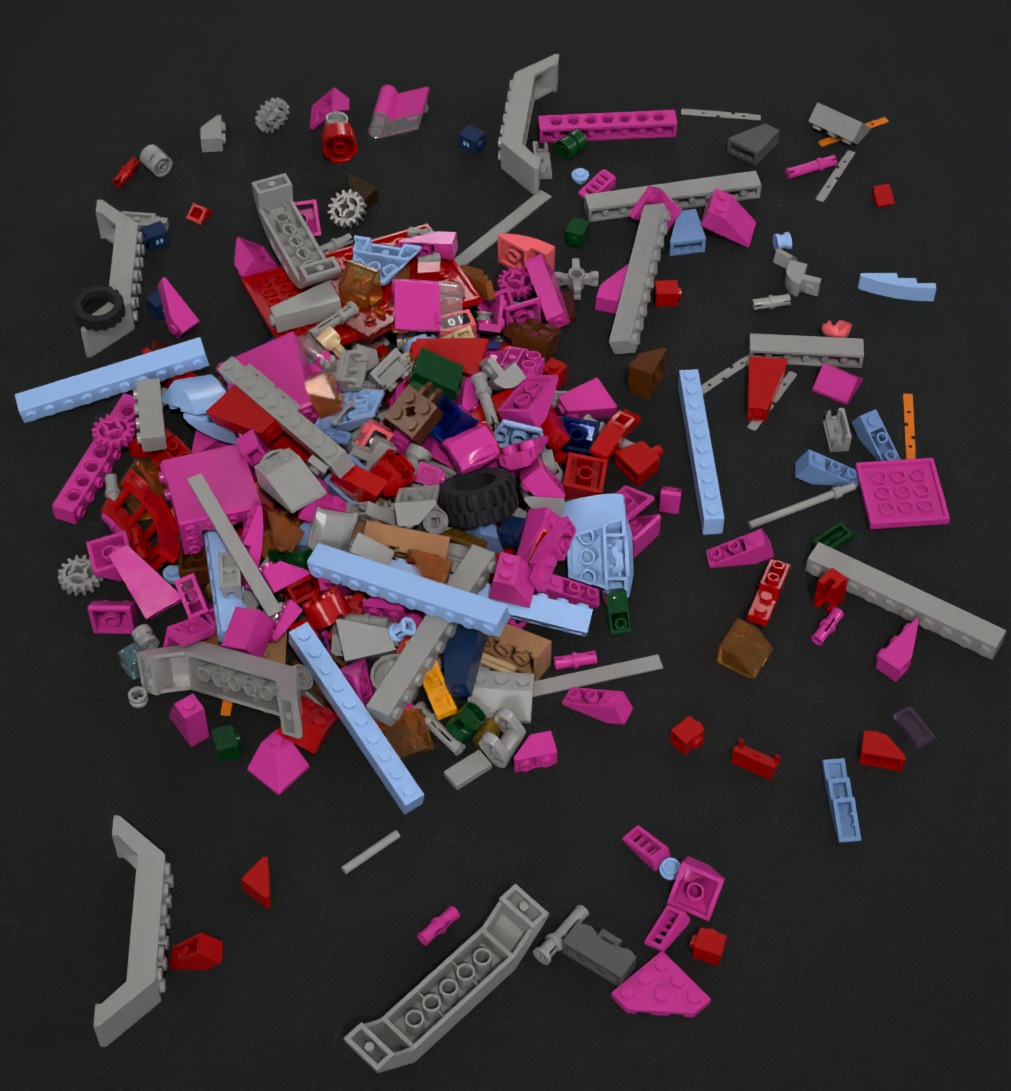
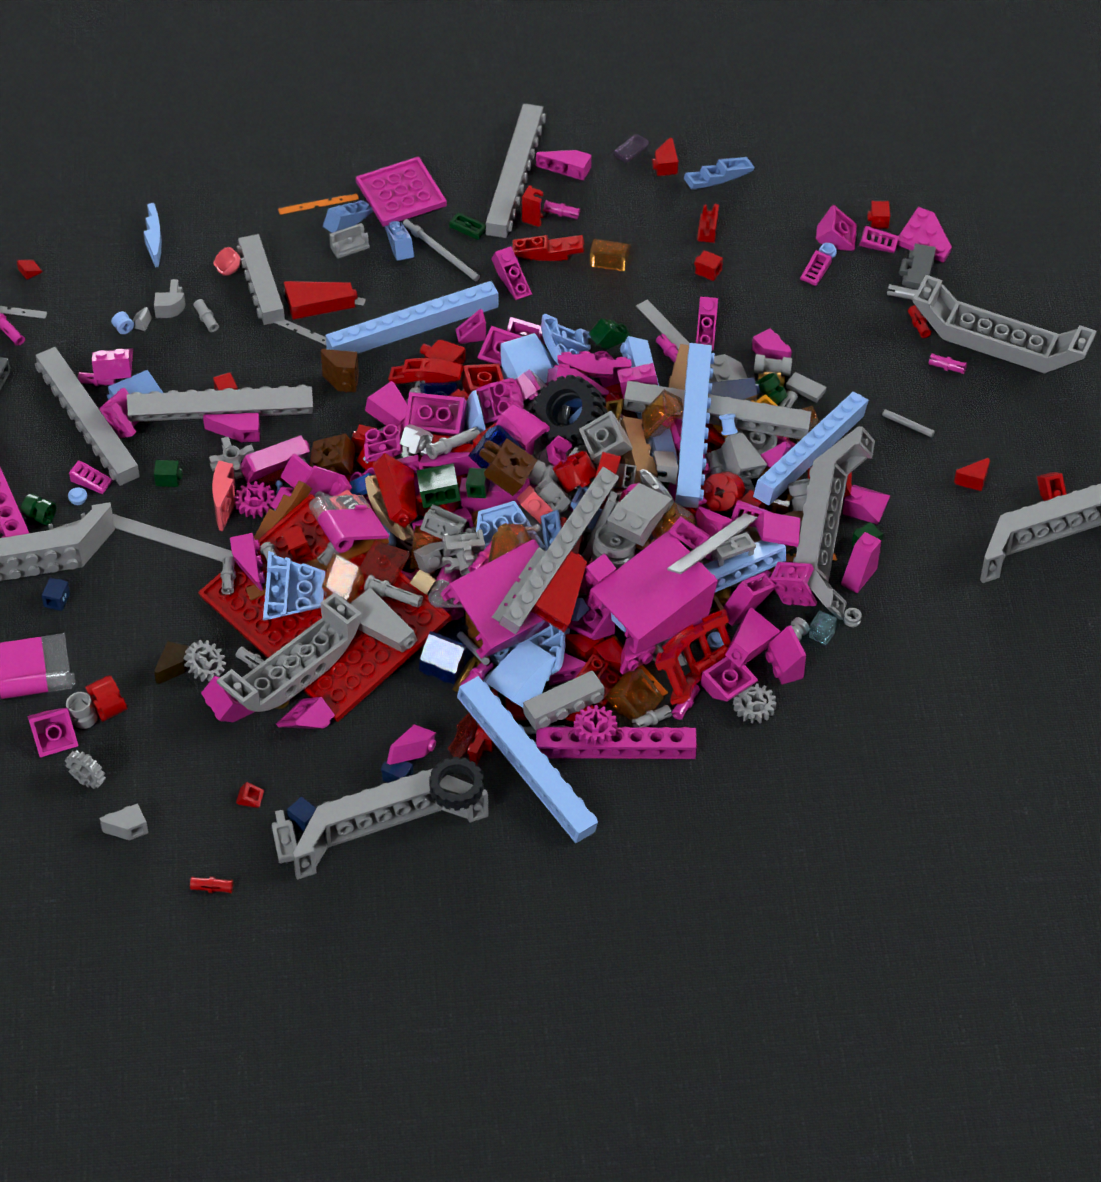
camera: 110 degrees left, 0 degrees up
(156, 160) = (188, 857): light grey wheel -> none
(836, 383) = (289, 253): dark pink slope -> none

